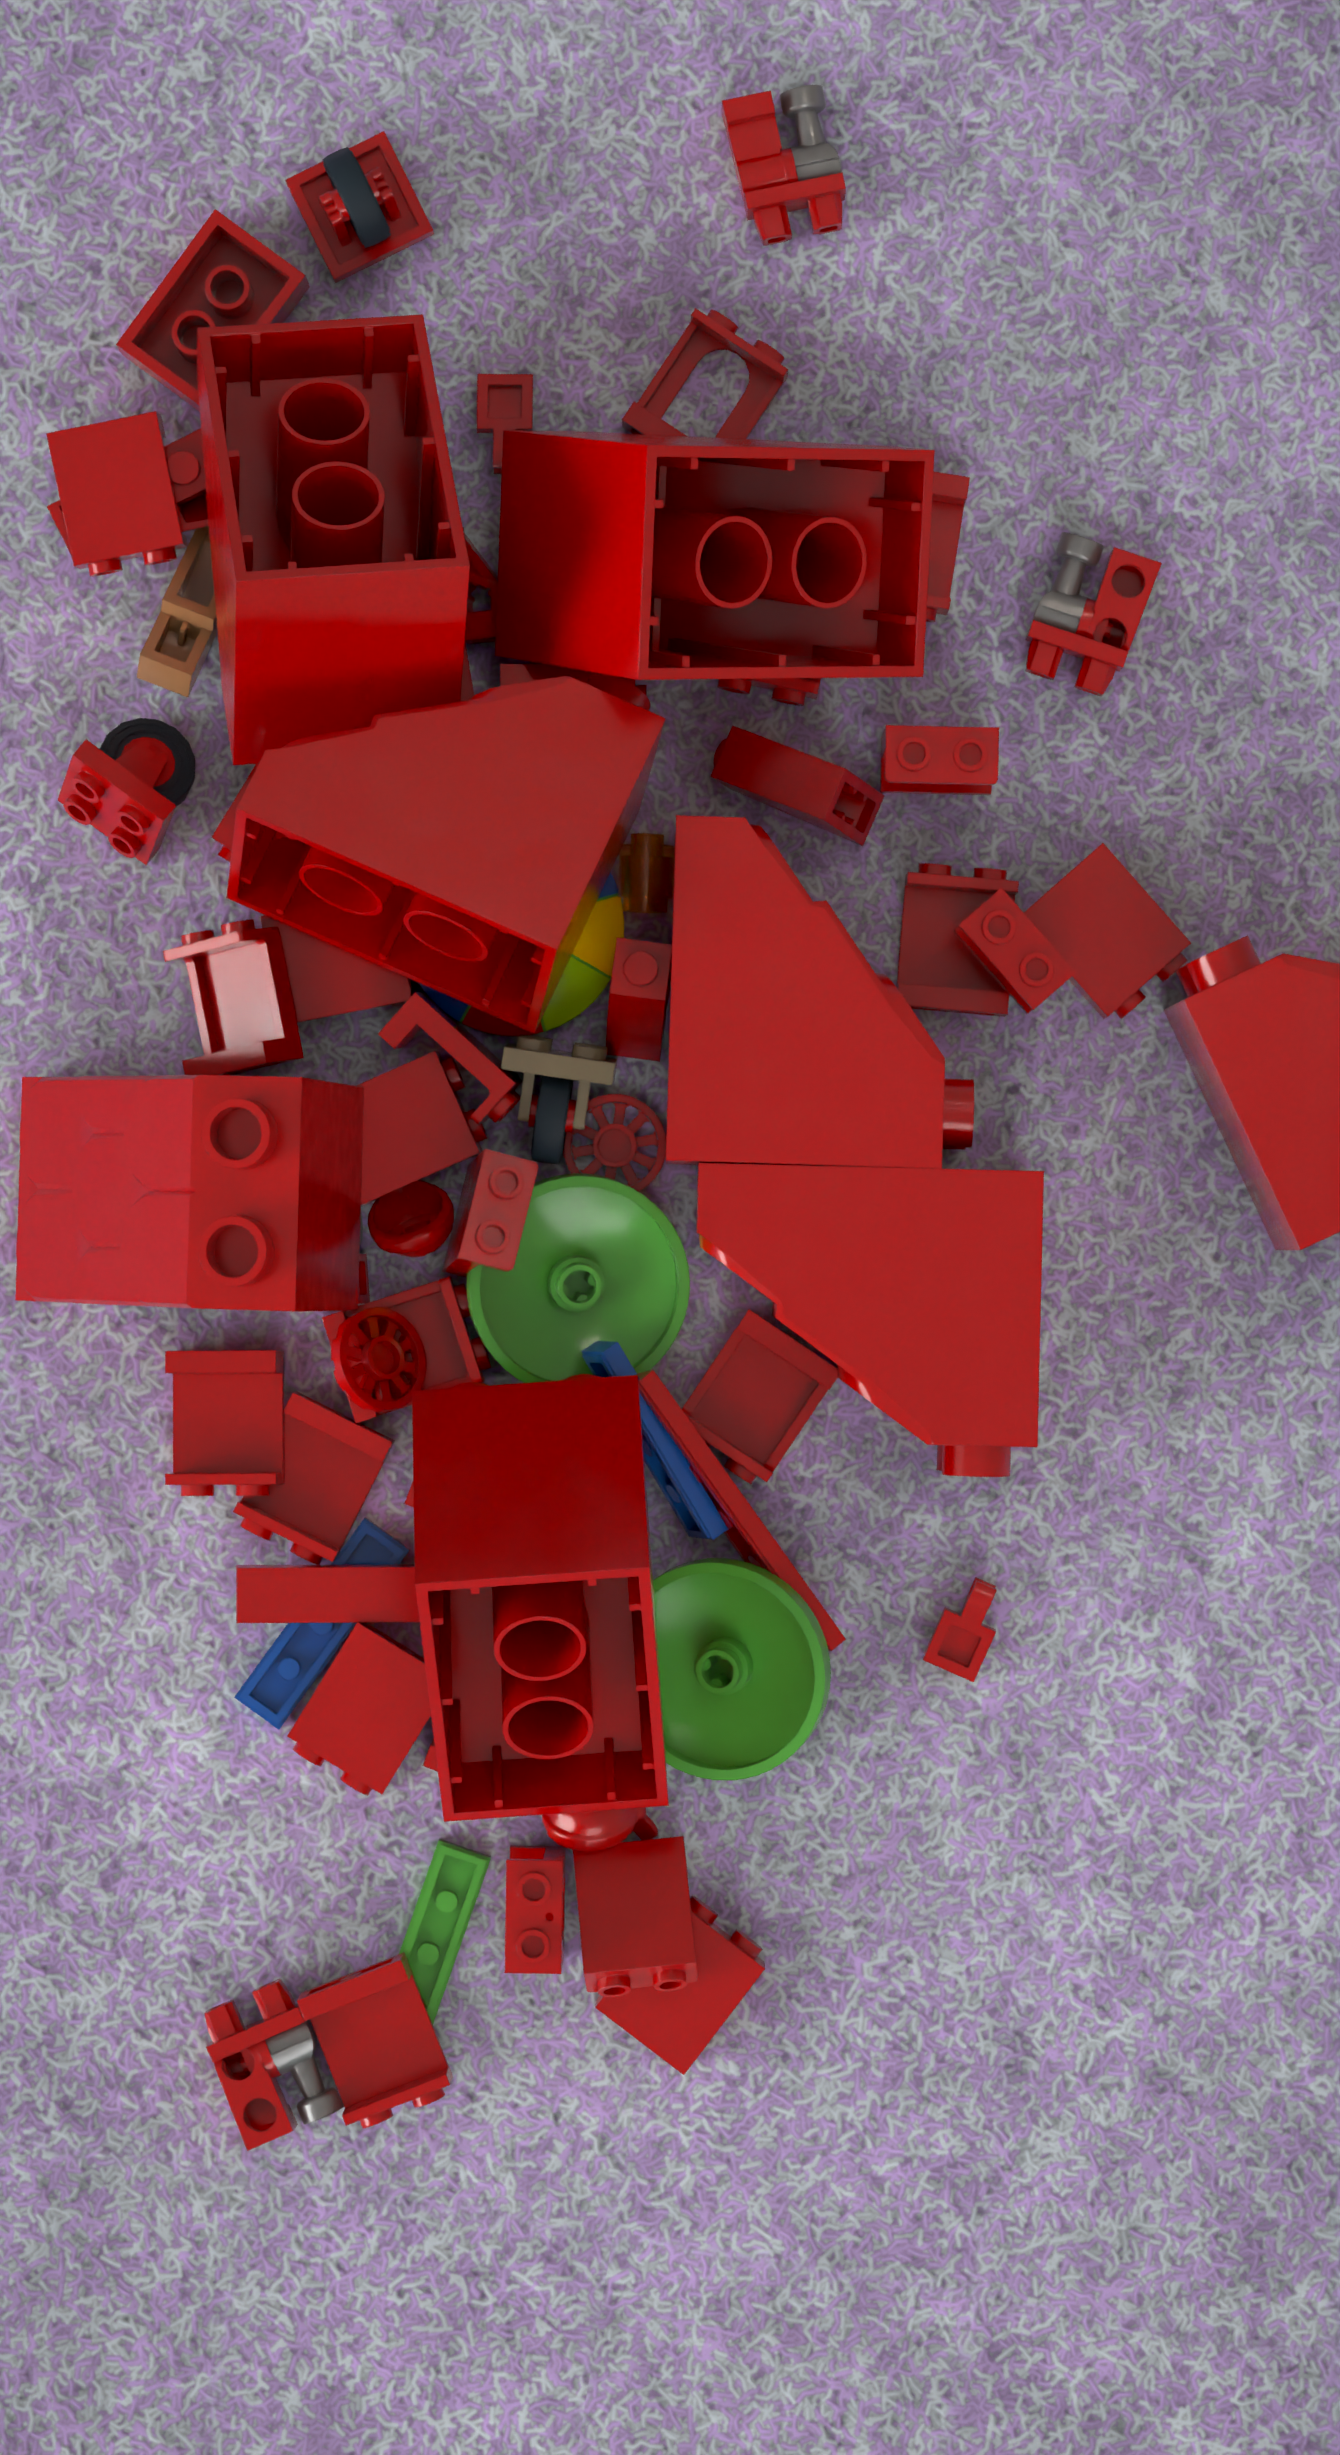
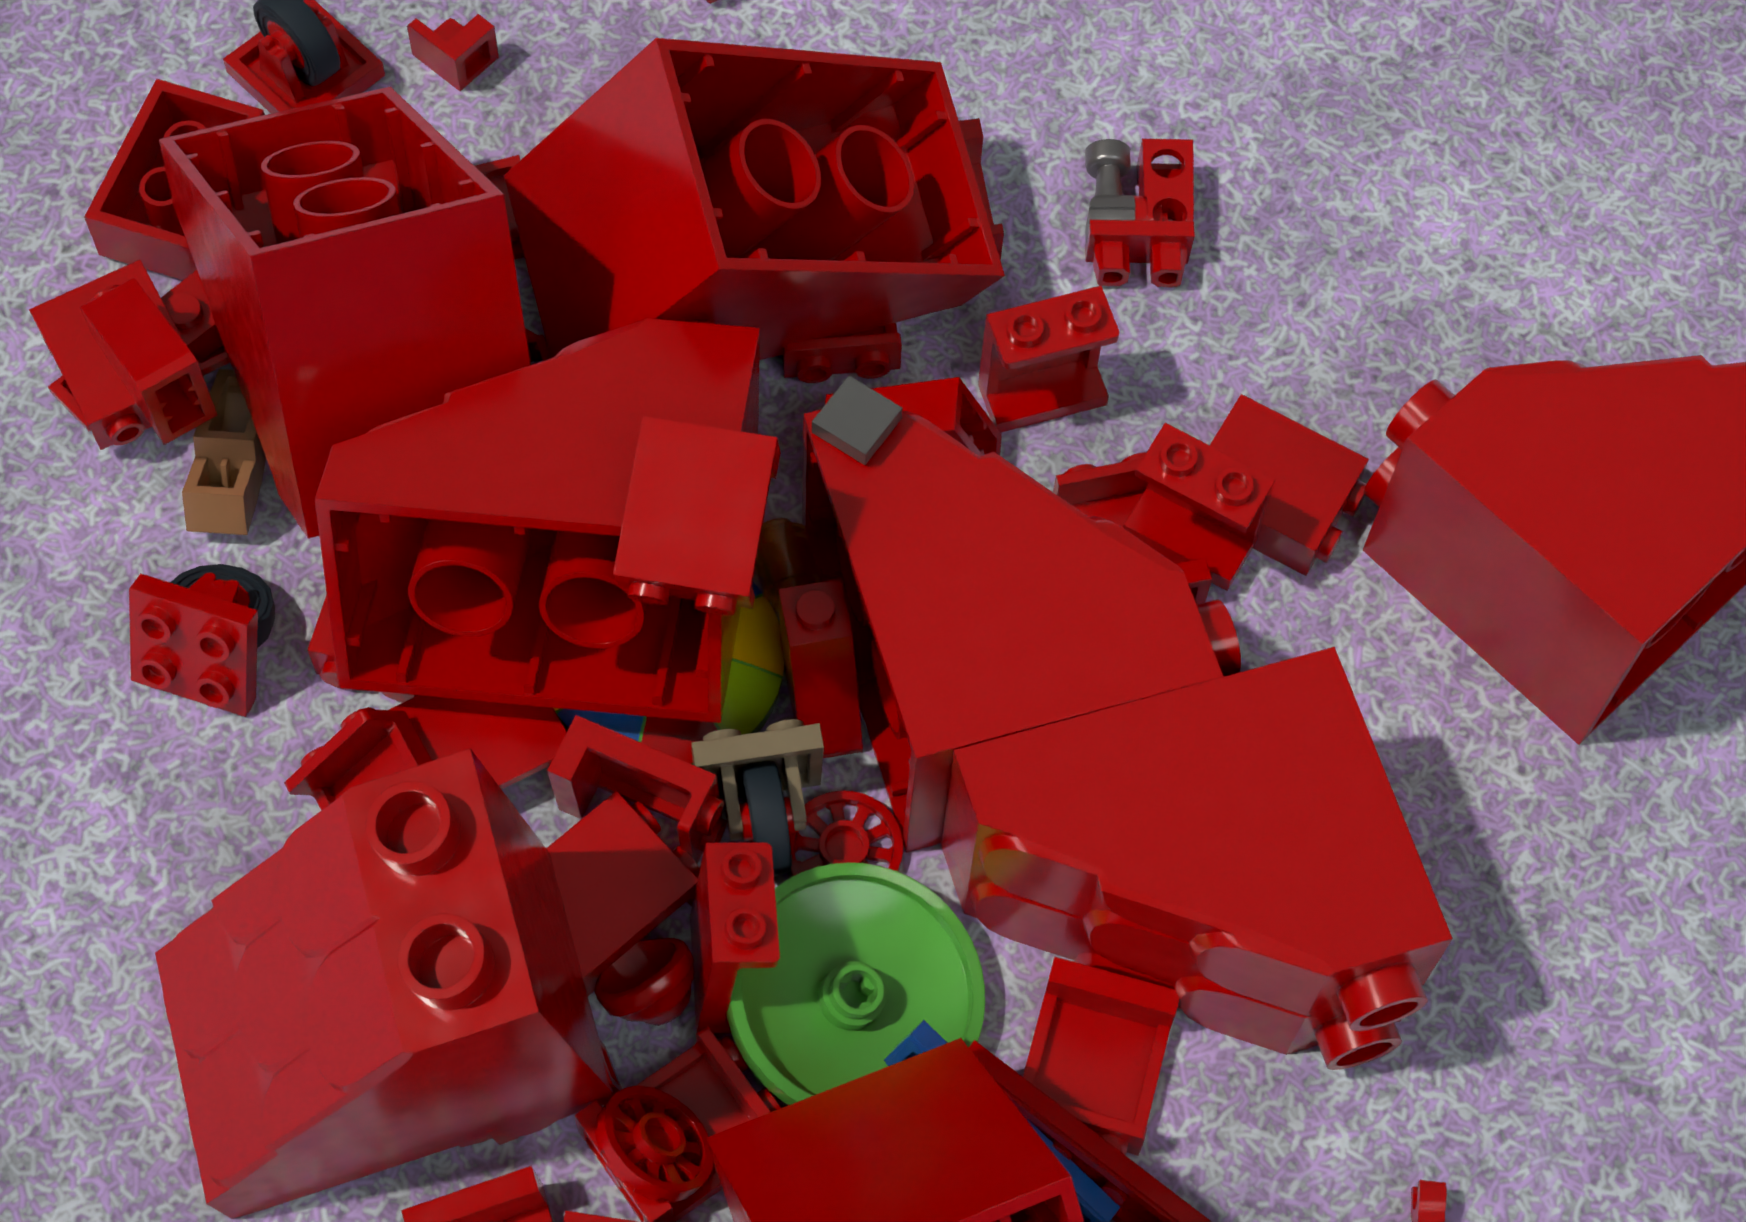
camera: 25 degrees left, 25 degrees down
(137, 529) = (150, 359): none -> red slope
(507, 227) = (455, 50): none -> red panel
(543, 919) = (695, 514): none -> red panel
(717, 841) = (856, 420): none -> dark grey tile

